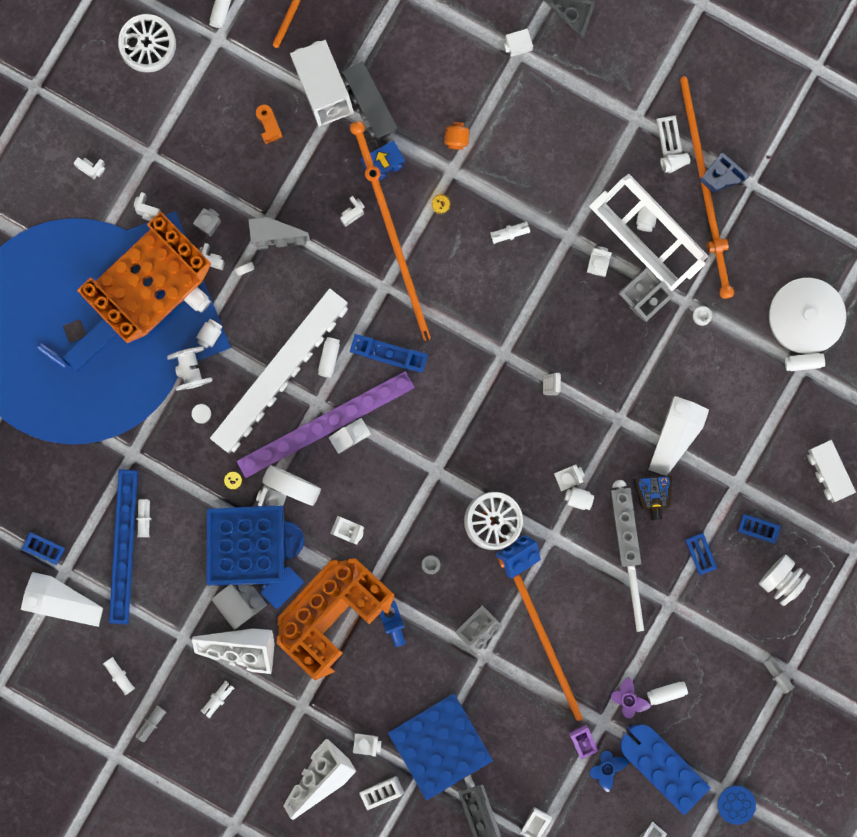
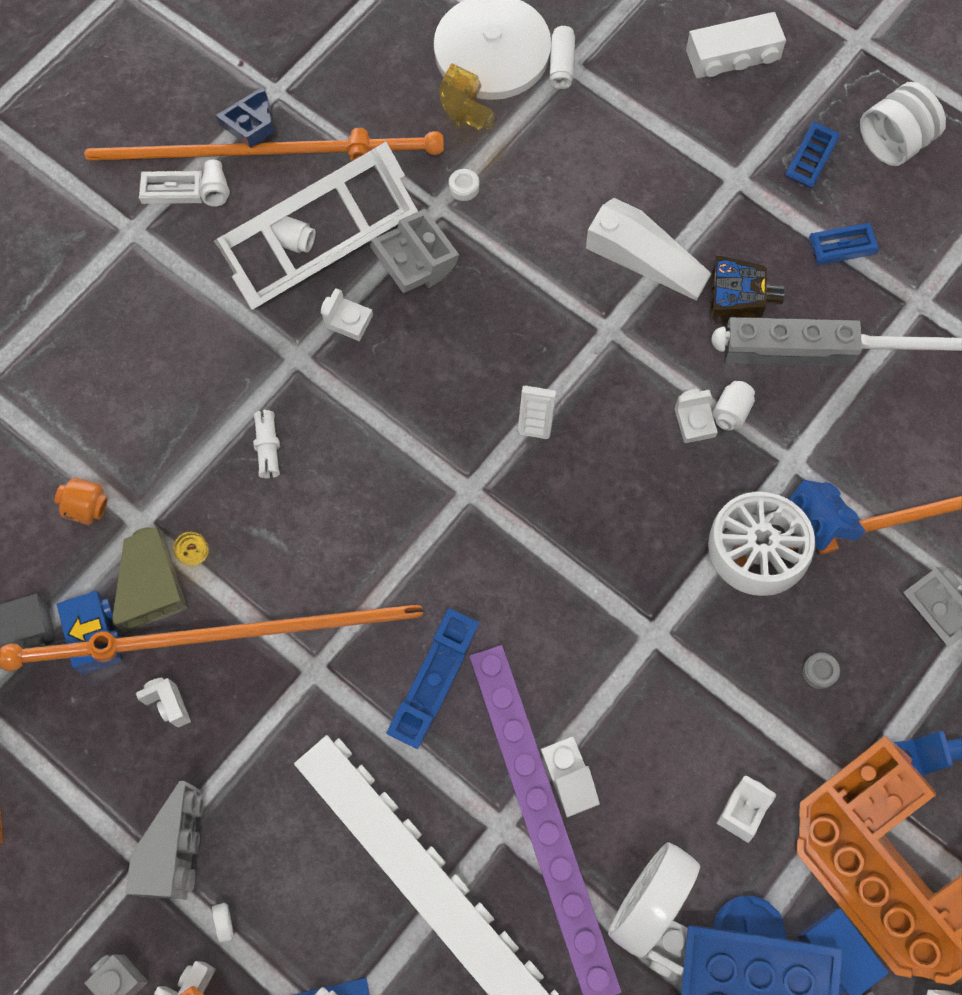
camera: 75 degrees left, 15 degrees down
(328, 357) = (420, 790): white piece -> none
(417, 184) = (146, 582): none -> olive slope
(758, 300) = (458, 96): none -> clear yellow brick

